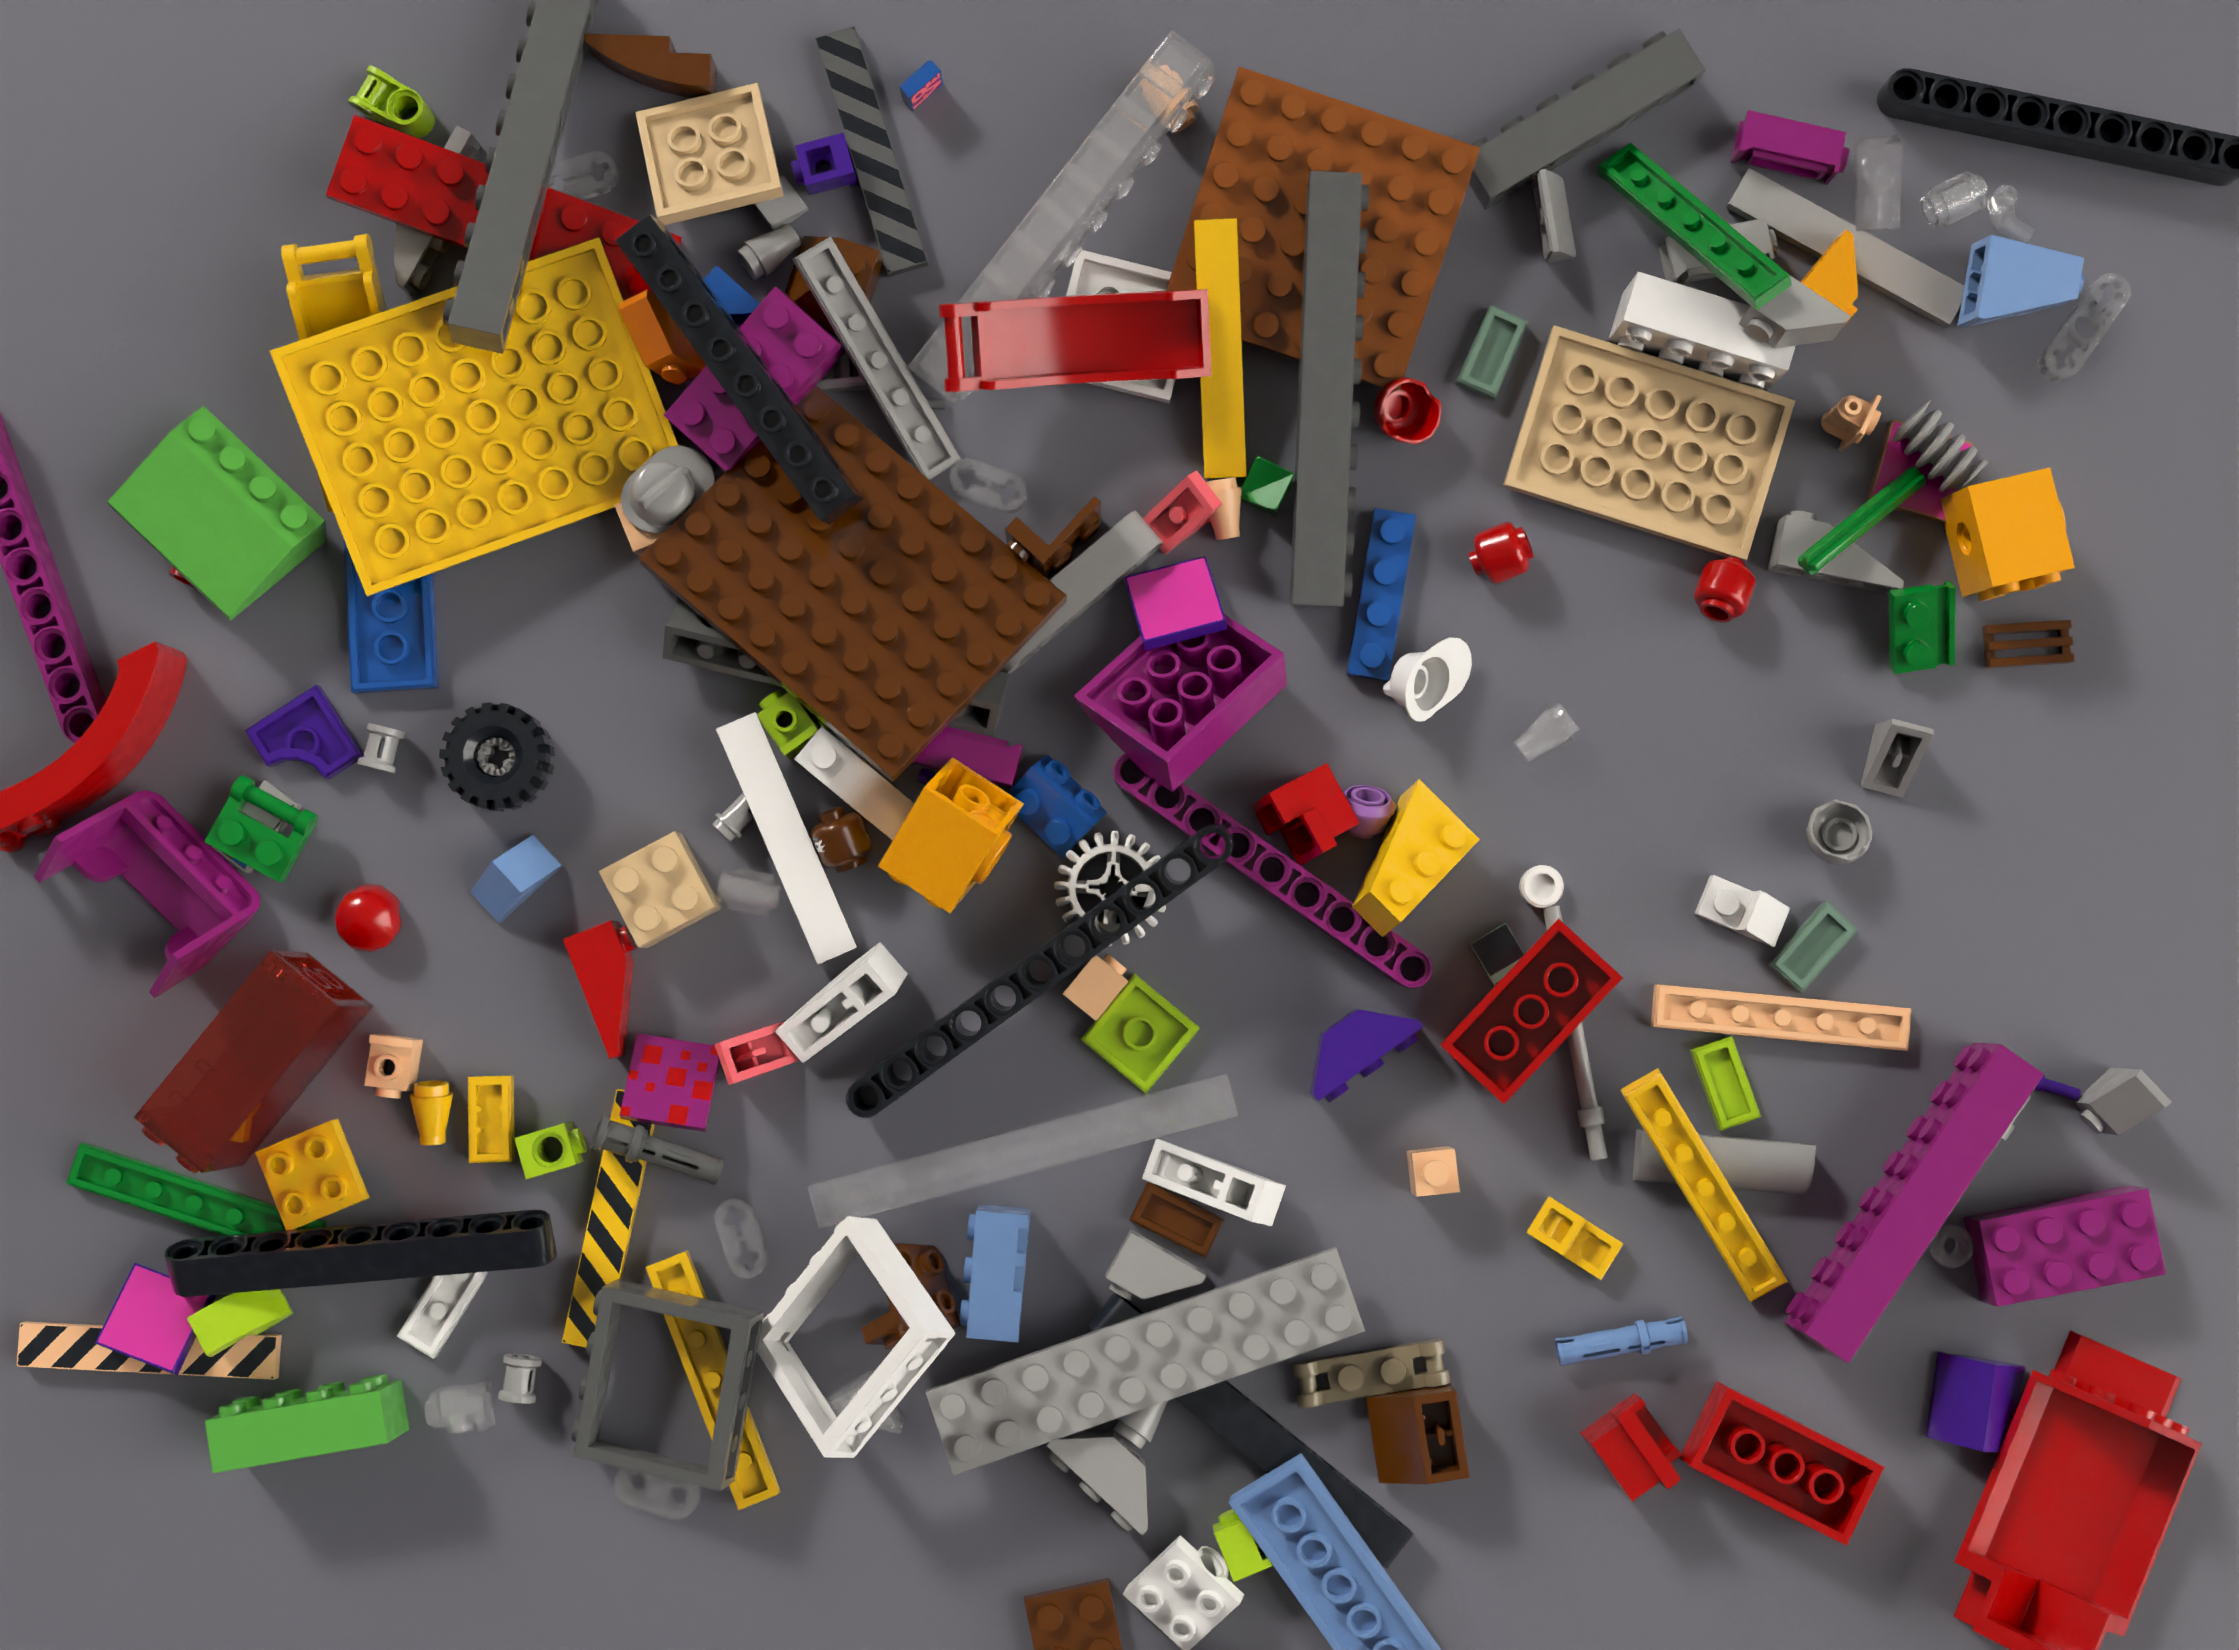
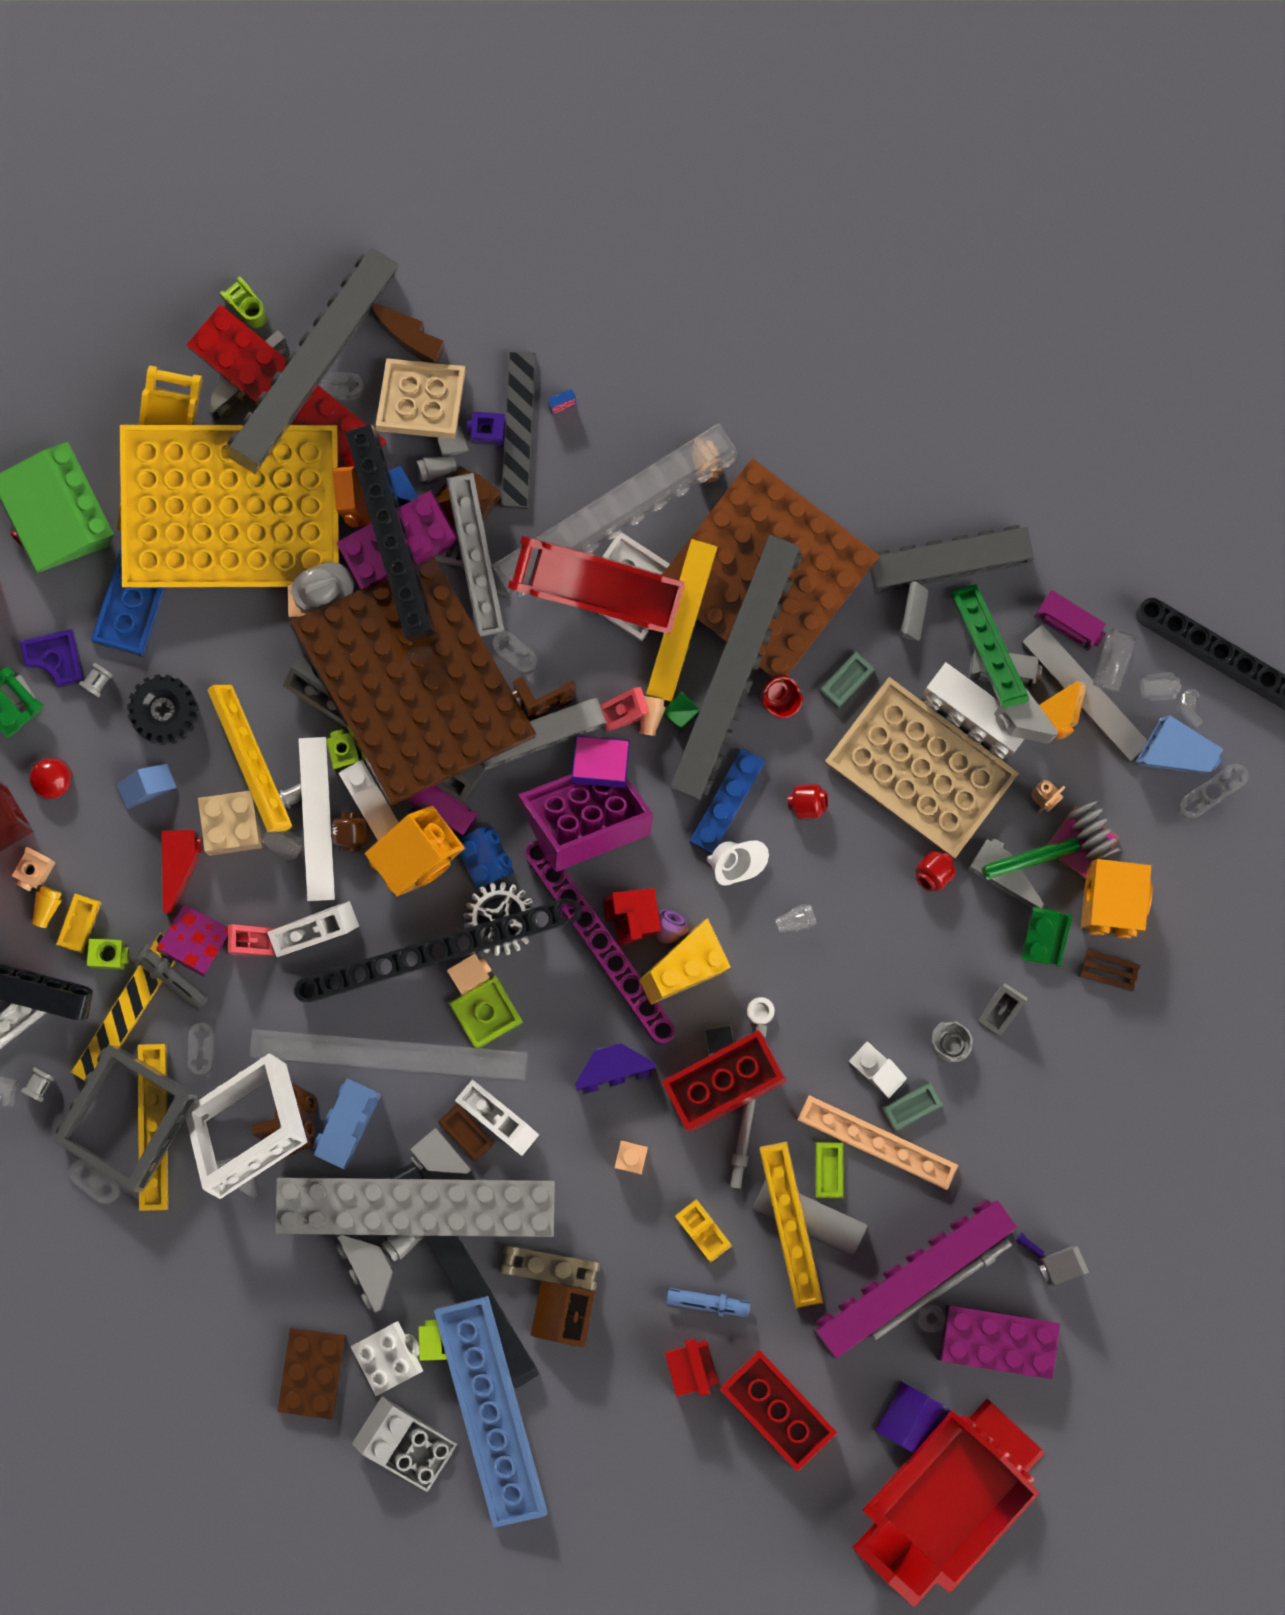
camera: 20 degrees right, 5 degrees down
(653, 783) = (249, 758): none -> yellow tile

